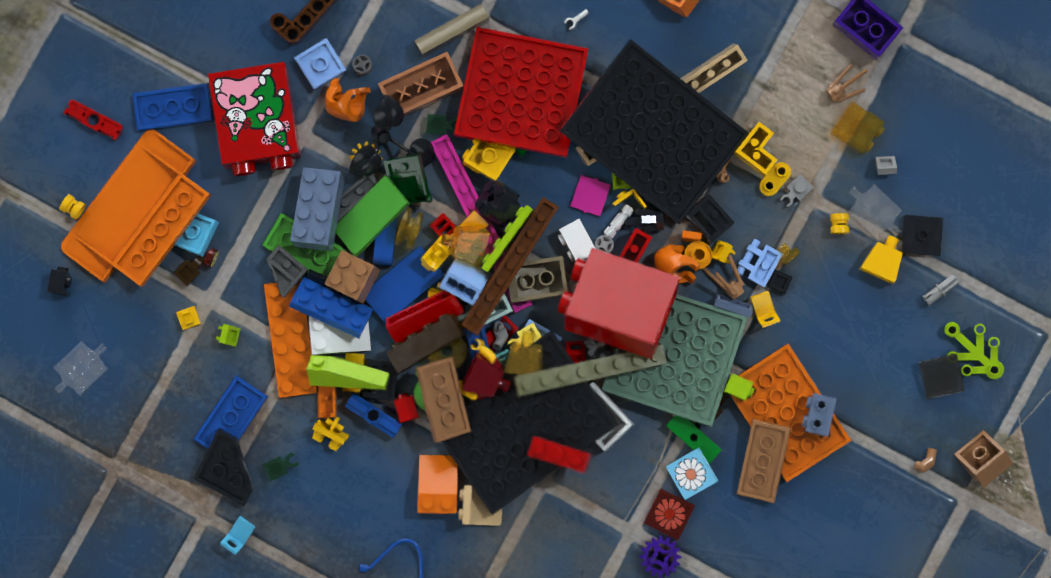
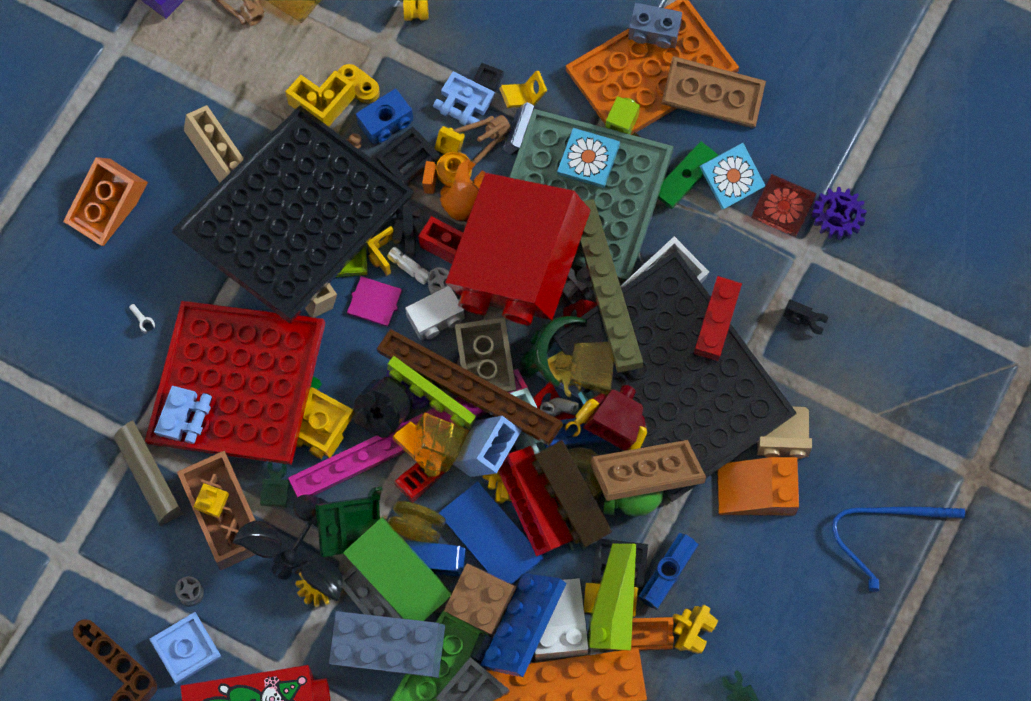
camera: 90 degrees left, 15 degrees down
(342, 105) = (250, 610): orange piece -> none
(406, 408) = (657, 528): red brick -> none
(423, 77) = (211, 500): none -> yellow tile
(435, 256) = (452, 487): yellow hips -> none
(495, 49) = (177, 413): none -> light blue plate
(553, 323) = (536, 358): none -> dark green piece
(575, 521) = (802, 314): none -> black plate
(702, 359) = (588, 158): none -> tile
(742, 189) = (389, 105): none -> blue brick
(788, 254) = (452, 63): clear yellow tile -> none
(797, 189) = (372, 58): light grey plate -> none

